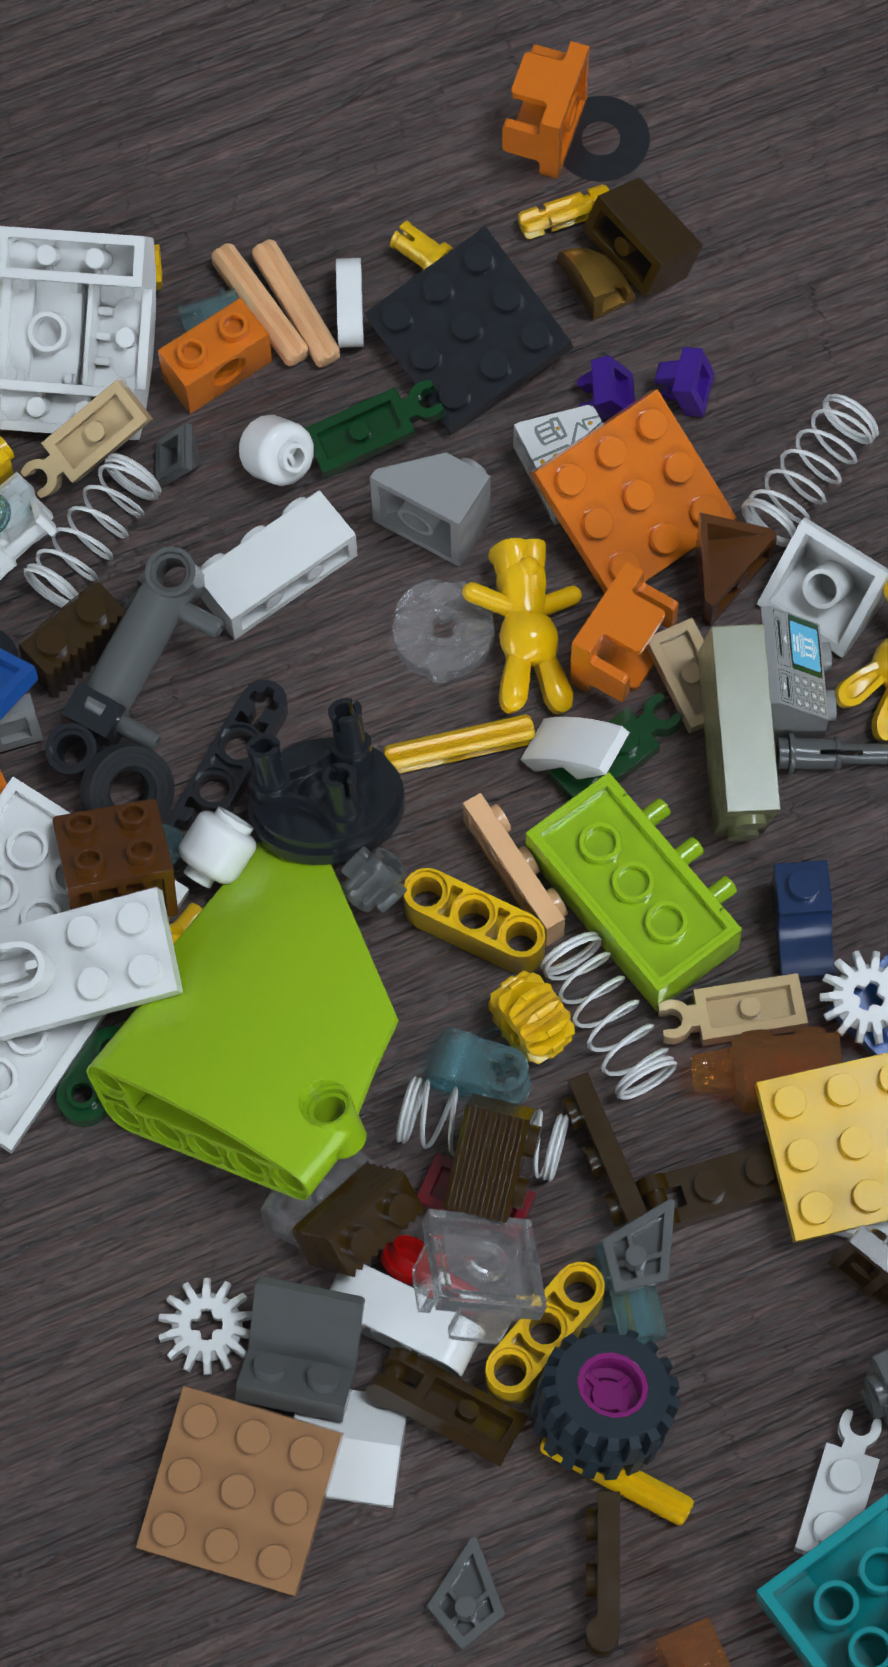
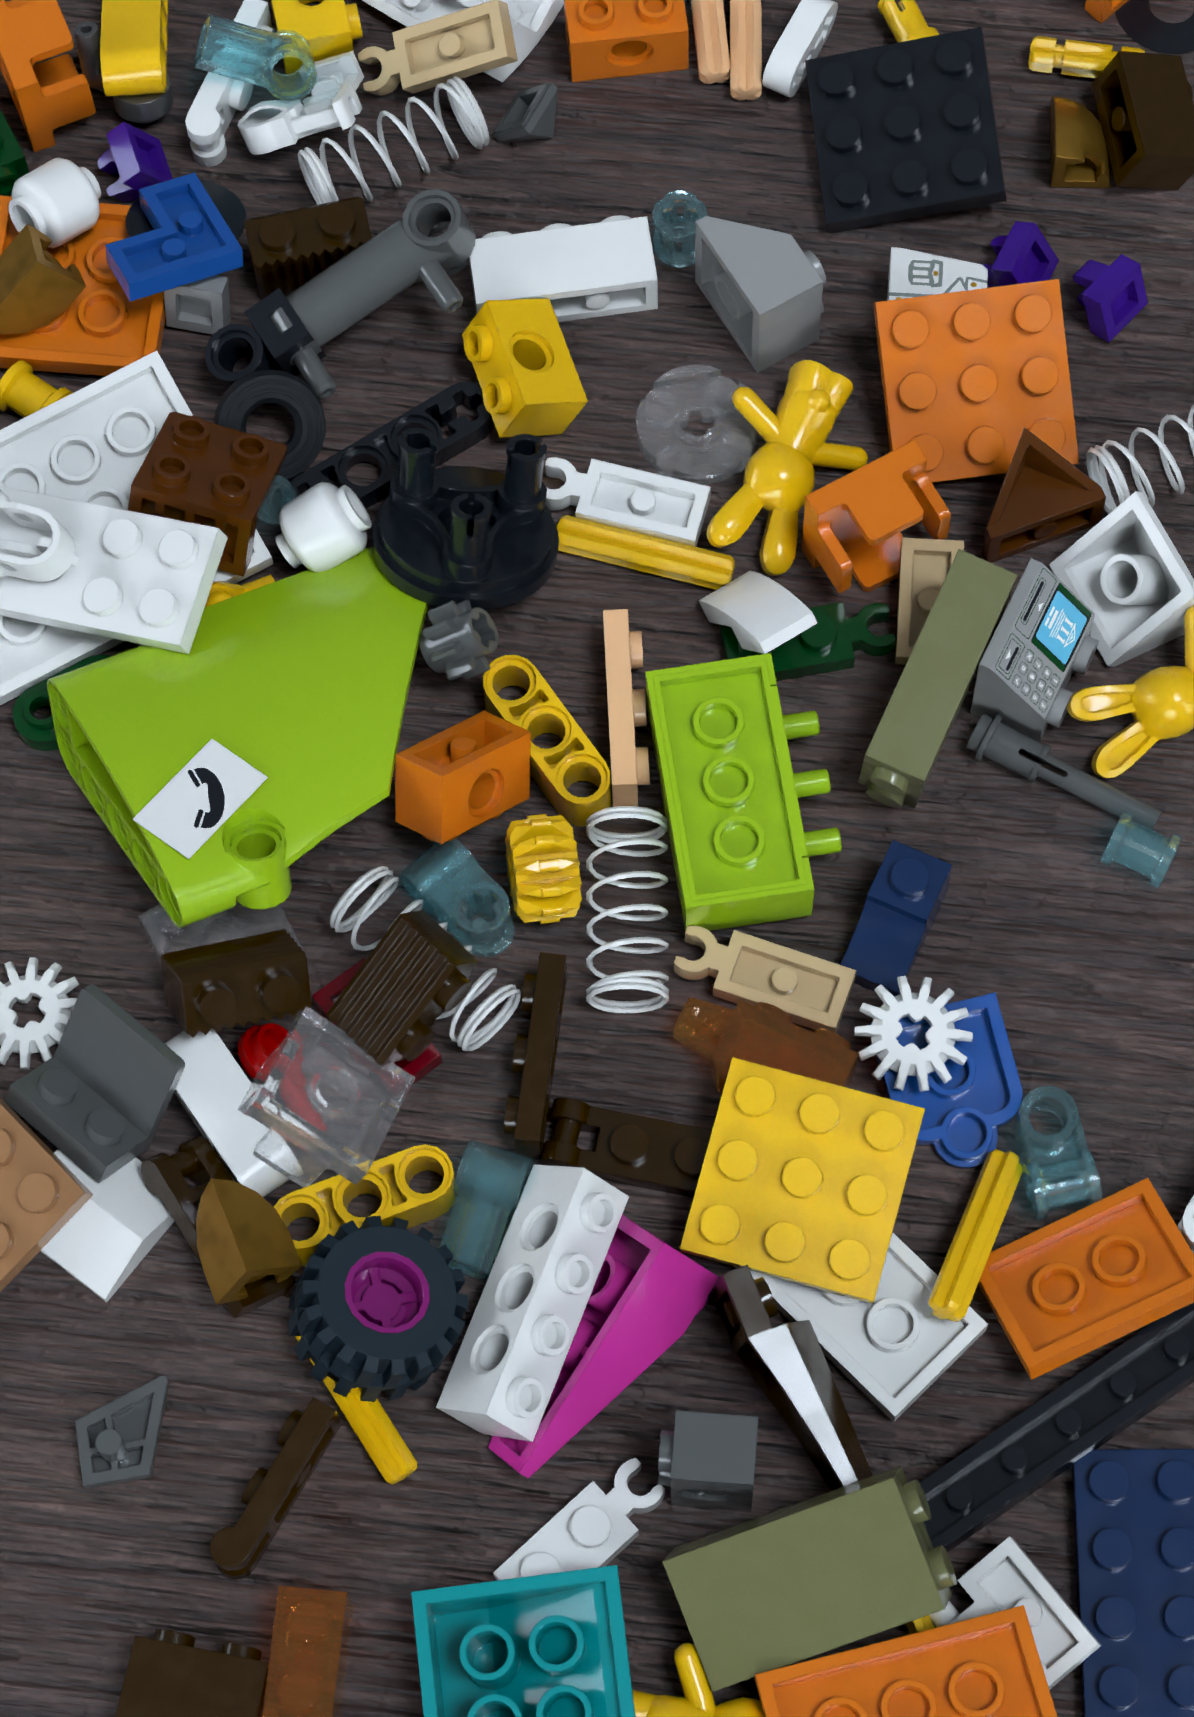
camera: 30 degrees right, 0 degrees up
(269, 1095) = (200, 798): none -> white sticker
(276, 450) = (630, 156): white head -> none
(292, 650) = (524, 367): none -> yellow brick
(352, 477) = (666, 223): none -> clear light blue bush
(371, 427) = (748, 179): dark green plate -> none
(431, 709) = (631, 499): none -> white plate
(435, 980) = (462, 777): none -> orange brick
(478, 1406) = (241, 1240): none -> pearl gold brick
(641, 1250) = (508, 1169): dark grey piece -> none
(714, 1340) = (533, 1302): none -> white brick
(771, 1321) = (632, 1317): none -> dark pink wedge

